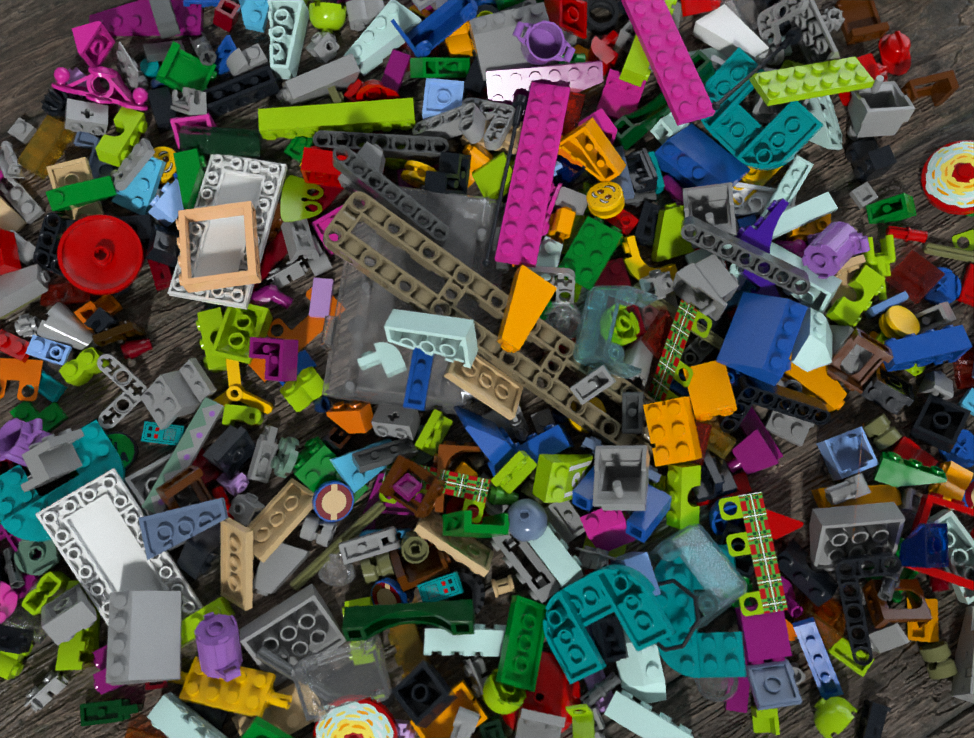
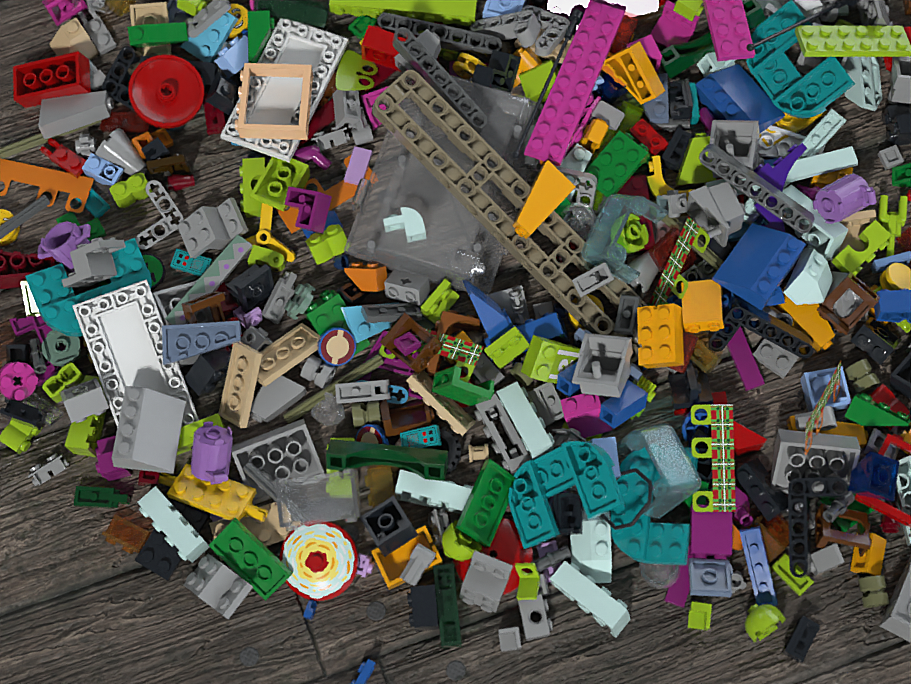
camera: 15 degrees right, 5 degrees down
(414, 547) = (403, 400): olive wheel -> none
(418, 380) = (439, 237): blue plate -> none
(434, 334) = (456, 207): light aqua wedge -> none
(487, 385) = (494, 260): tan plate -> none
(499, 496) = (490, 370): bright green cone -> none
(527, 520) = (511, 393): sand blue cylinder -> none
(605, 199) = (639, 119): yellow head -> none
(681, 479) = (660, 383): lime arch -> none
(753, 454) = (735, 374): magenta torso -> none

